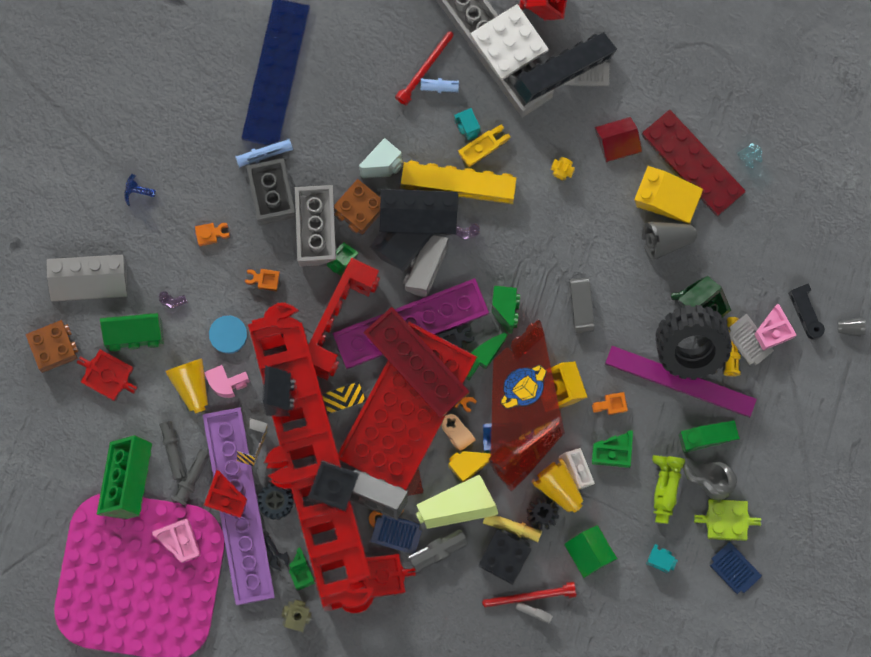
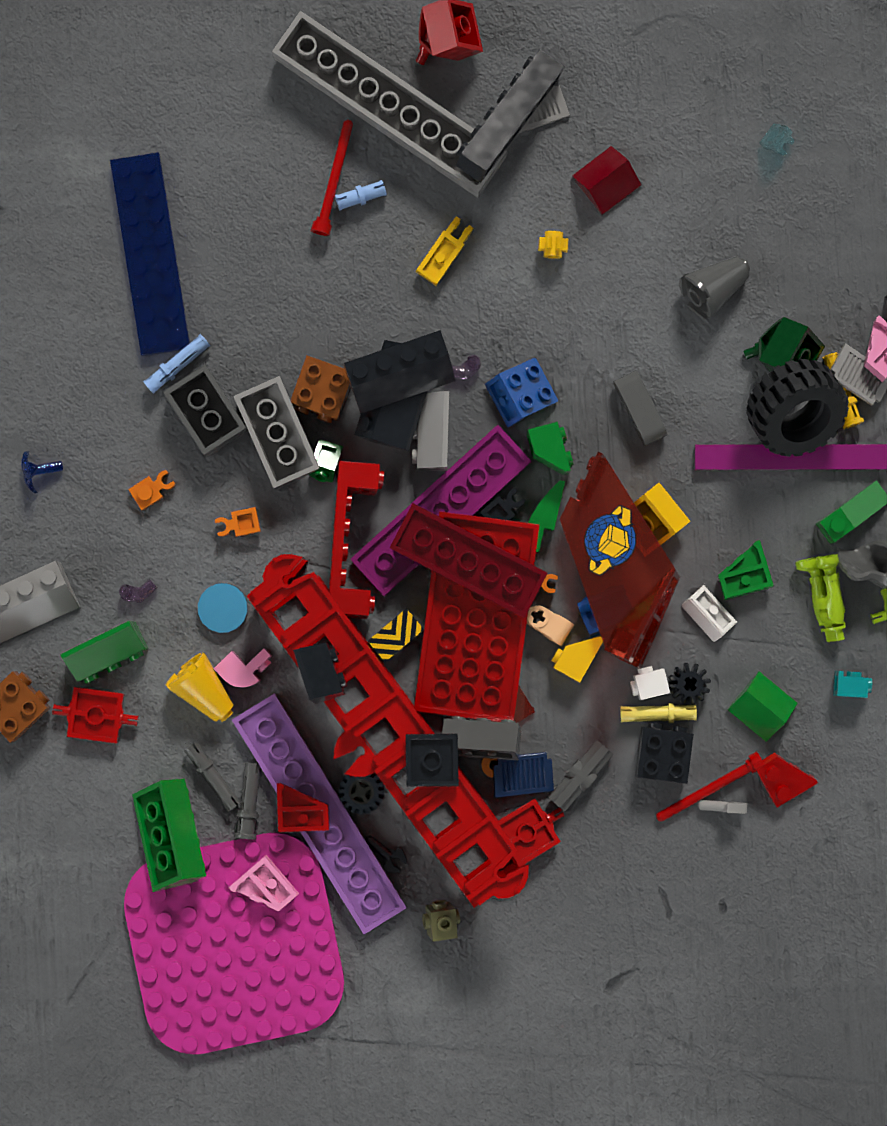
camera: 20 degrees left, 10 degrees up
(248, 459) = (307, 707): sticker -> none
(300, 571) = (425, 863): green slope -> none
(381, 161) = (328, 320): light aqua slope -> none
(458, 504) = (583, 712): yellowish green slope -> none
(466, 182) = (432, 310): yellow brick -> none
(467, 124) = (415, 232): teal brick -> none
(500, 262) = (521, 391): none -> blue bracket
(509, 42) = (428, 109): white plate -> none
(514, 502) = (649, 683): none -> white brick
(559, 486) = (695, 642): yellow cone -> none
(585, 608) = (782, 779): none -> red wing
(613, 404) = (724, 516): orange plate -> none
(668, 195) = (696, 230): yellow slope -> none
(693, 162) = (710, 175): dark red plate -> none

